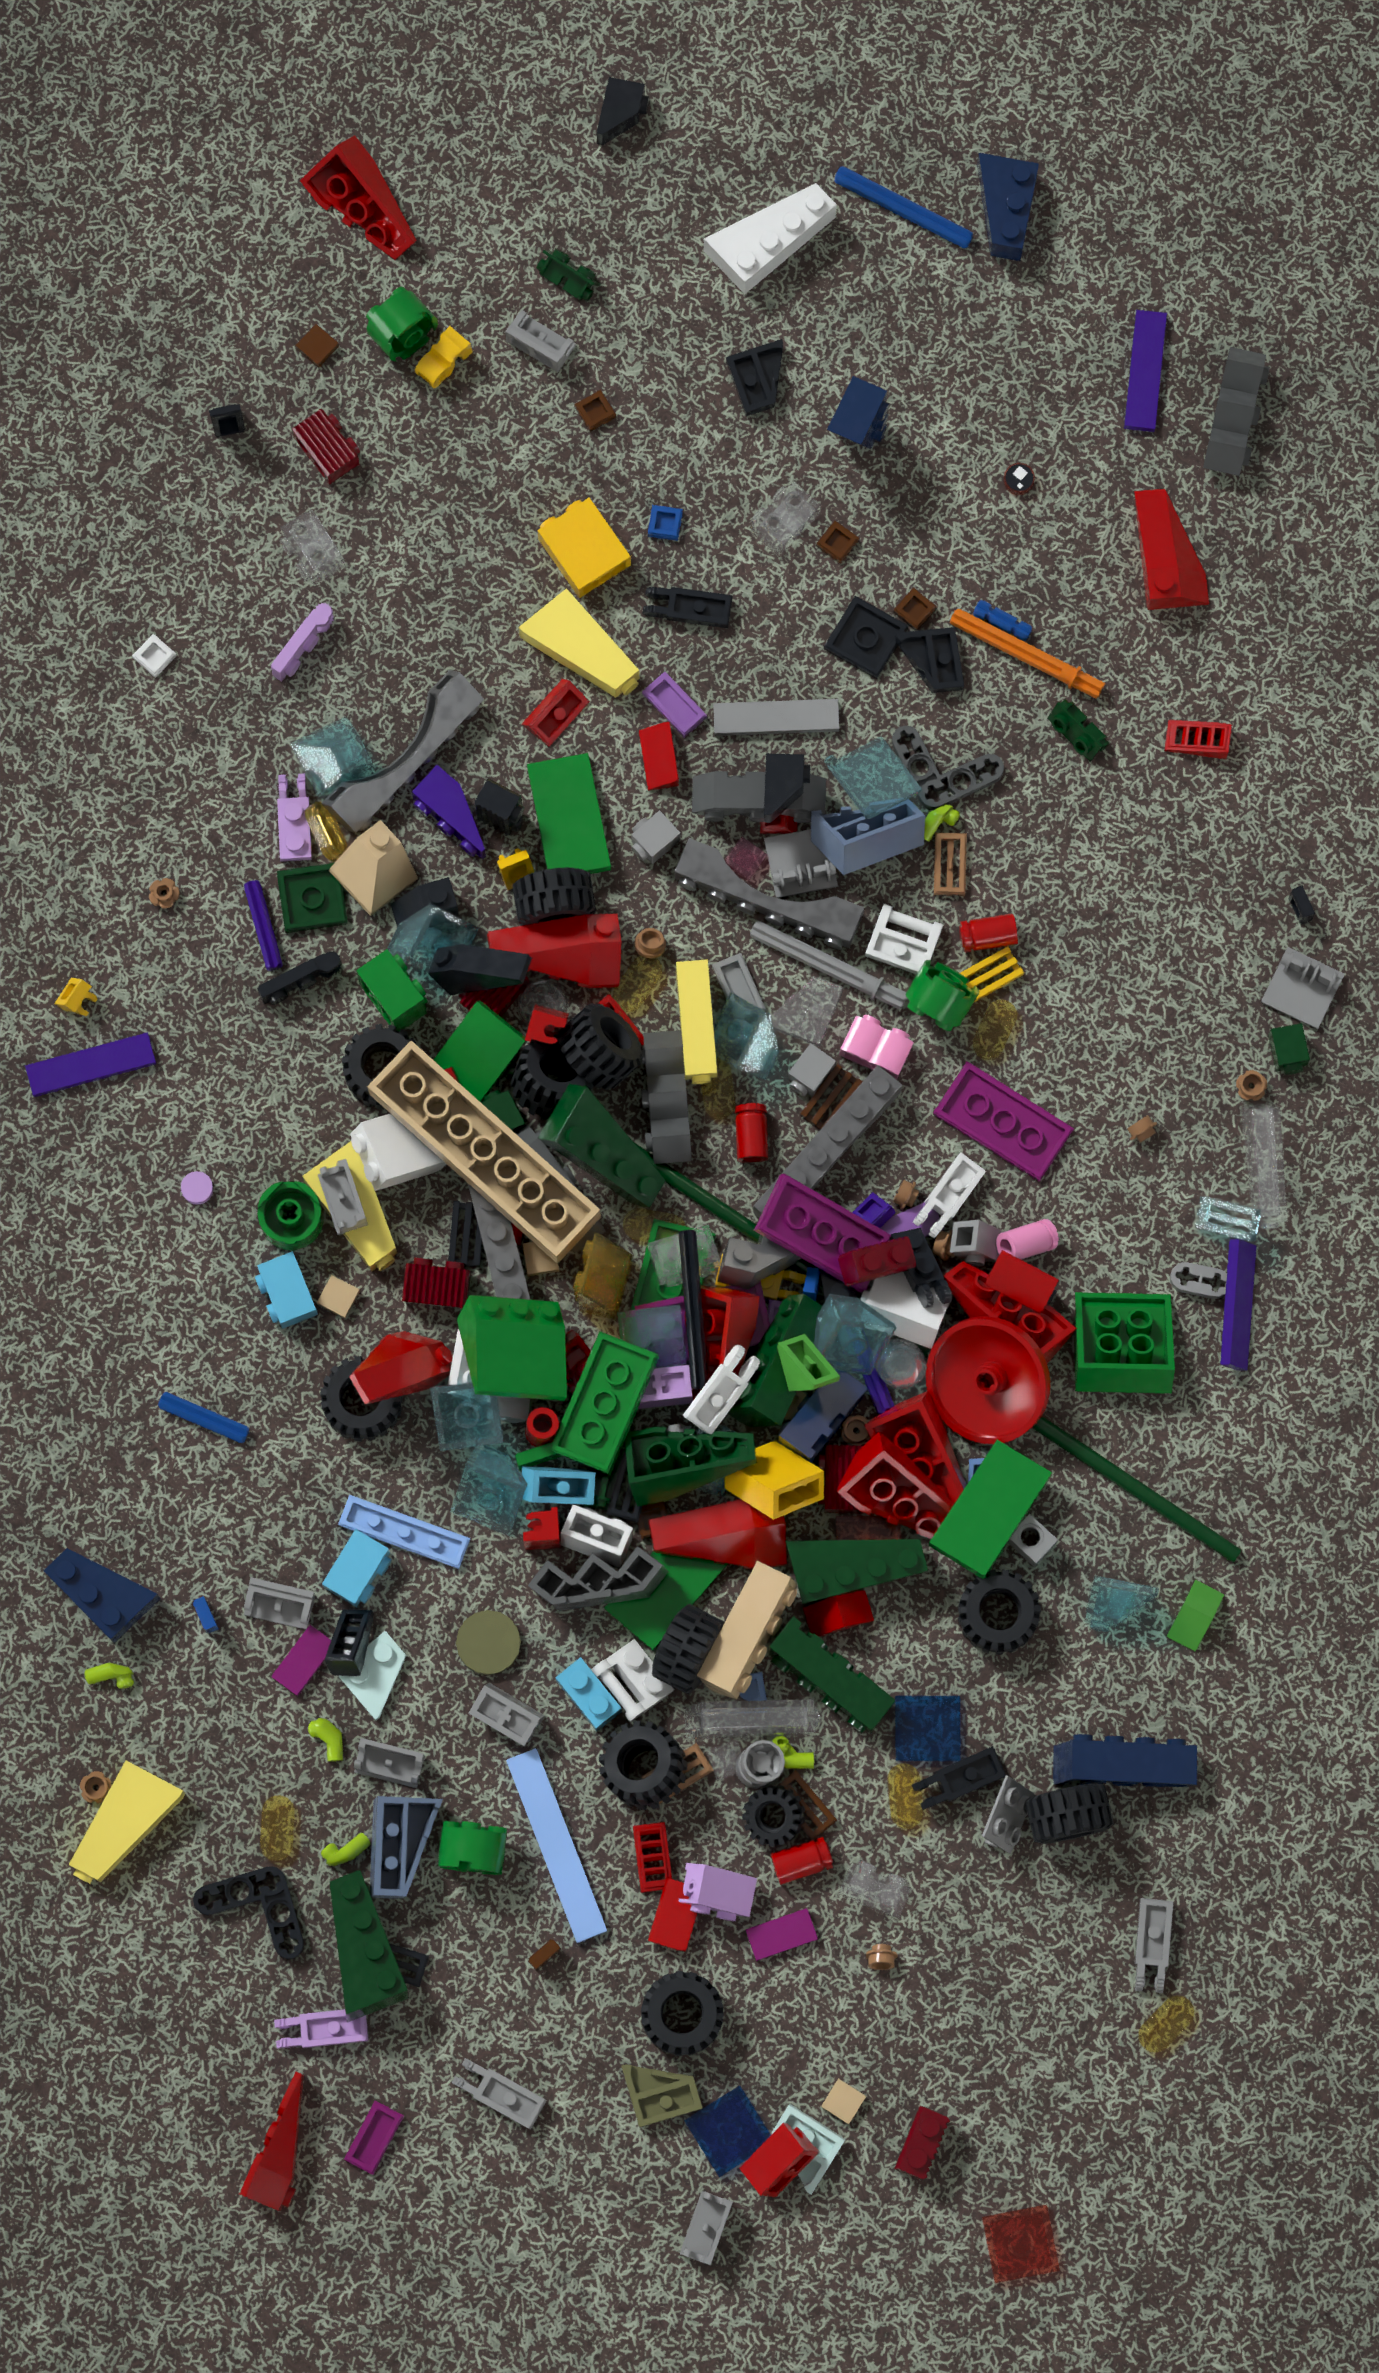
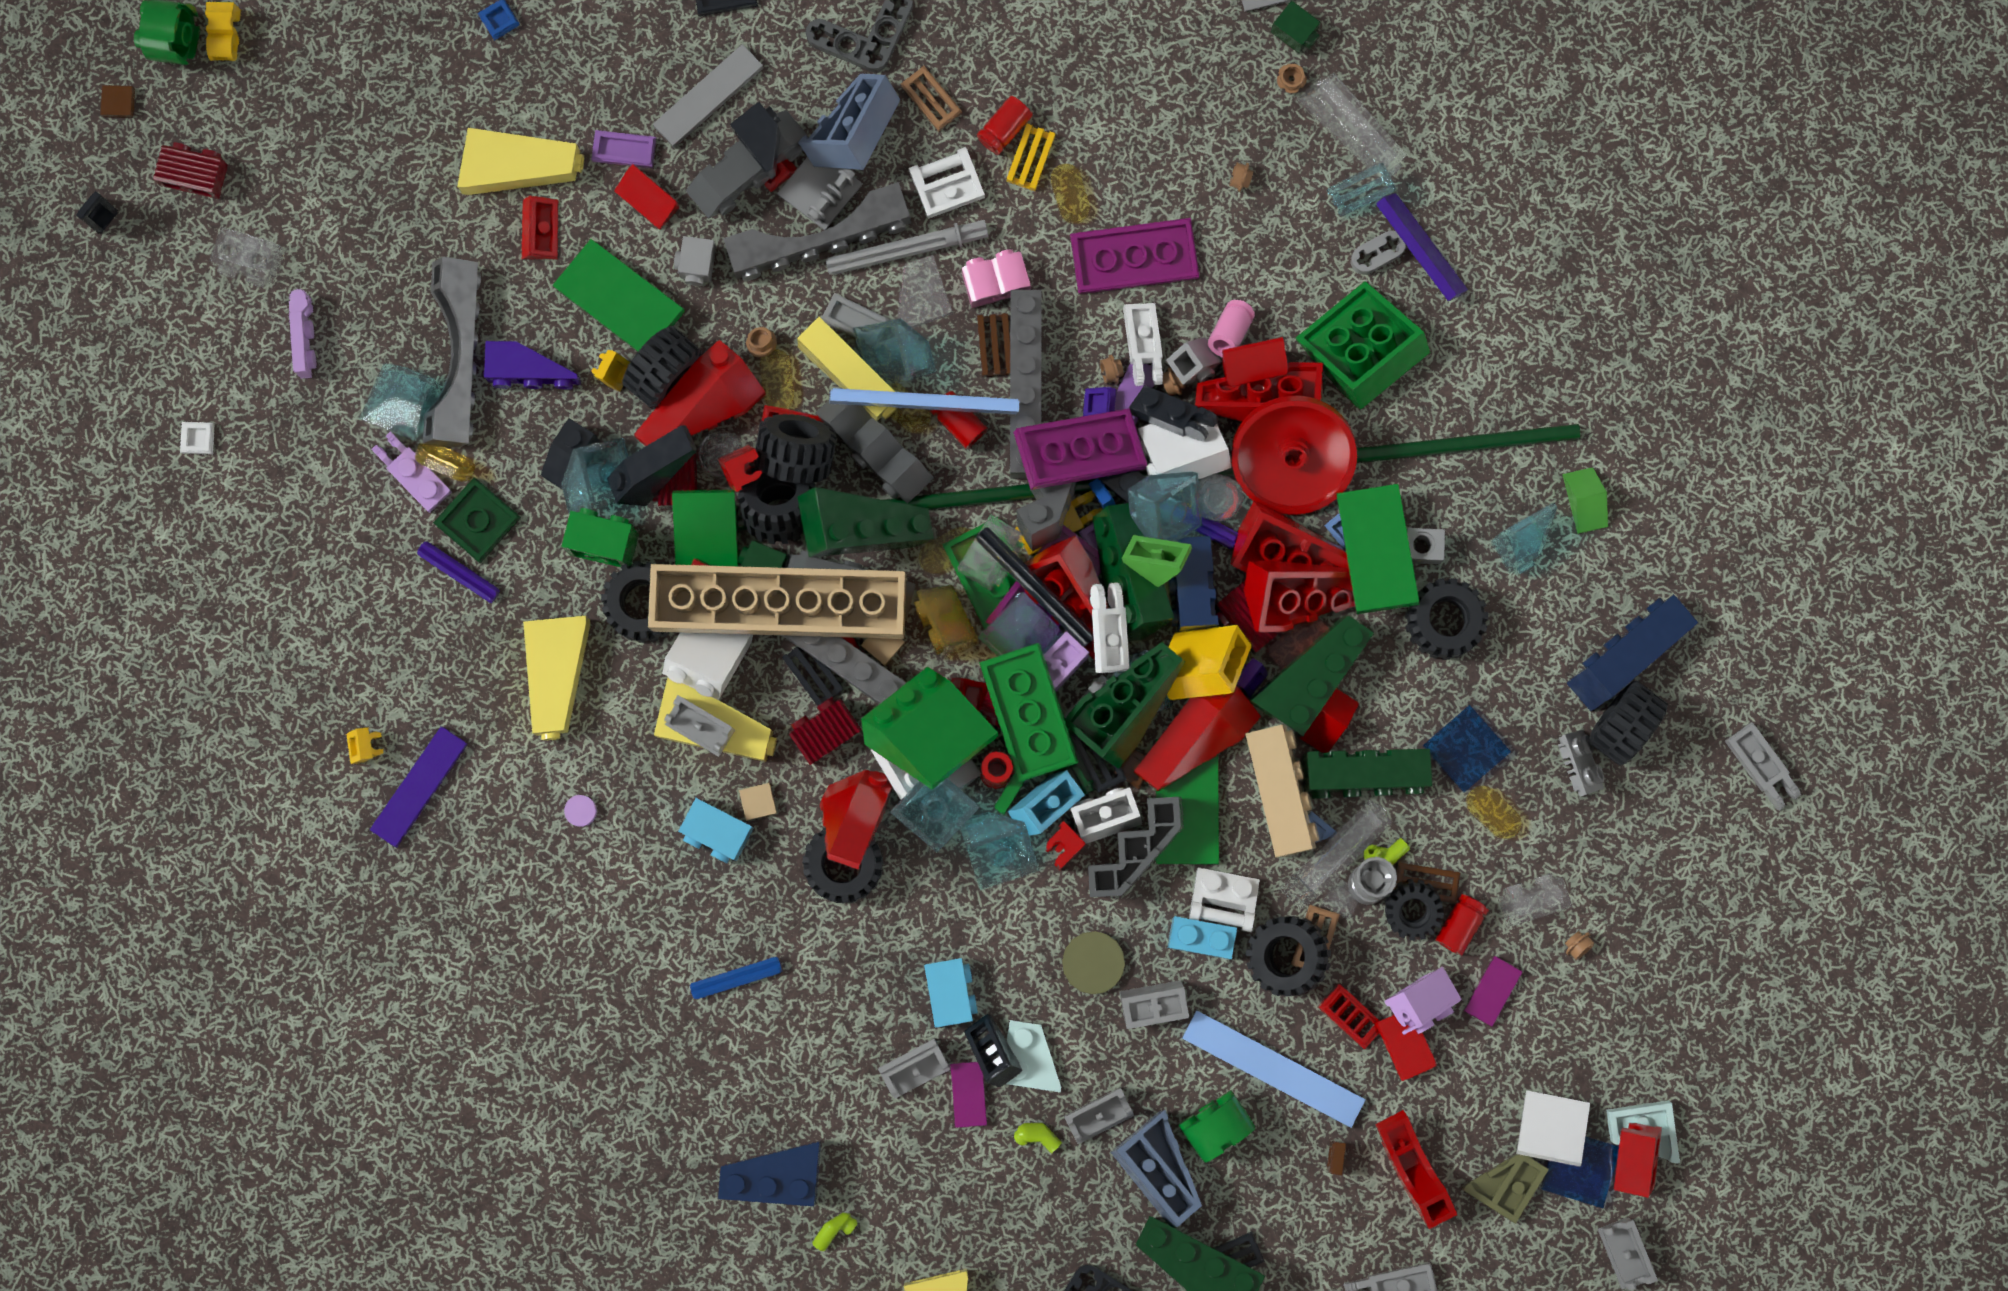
camera: 40 degrees left, 5 degrees up
(163, 901) = (369, 614): medium nougat plate -> none
(205, 1615) = (867, 1124): blue tile -> none
(271, 1060) = (553, 668): none -> light yellow slope
(277, 1828) = (1057, 1235): clear yellow tile -> none
(290, 1197) = (657, 759): green brick -> none
(300, 976) = (521, 586): black hinge -> none
(346, 1853) = (1126, 1208): lime arm -> none
(374, 868) = (506, 458): tan slope -> none
(404, 1531) = (959, 934): light blue tile -> none
(499, 807) = (561, 334): black brick -> none
(583, 546) = (453, 86): yellow brick -> none
(597, 2014) = (1414, 1170): none -> red arch
(661, 1992) = (1502, 1113): black tyre -> none
(685, 1648) = (1248, 841): black tyre -> none
(690, 606) = (572, 65): black hinge -> none
(731, 1093) = (924, 401): none -> light blue tile
(734, 2079) = (1553, 1128): none -> white tile
(745, 858) = (777, 219): clear pink tile -> none
(804, 1525) = (1251, 677): none -> dark purple tile
(810, 1071) = (963, 337): light grey brick -> none
(843, 2101) = (1642, 1074): tan tile -> none
(847, 1432) = (1230, 581): medium nougat plate -> none
(873, 777) = (821, 79): clear light blue piece -> none
(877, 1261) = (1139, 435): dark red brick -> none
(922, 2143) = (1727, 1056): dark red brick -> none
(938, 816) = (892, 69): lime arm -> none
(941, 995) = (1012, 199): green brick -> none
(963, 1777) = (1524, 763): black hinge -> none
(1020, 2243) = (1857, 1065): clear red tile -> none
(1166, 2024) = (1821, 815): clear yellow tile -> none

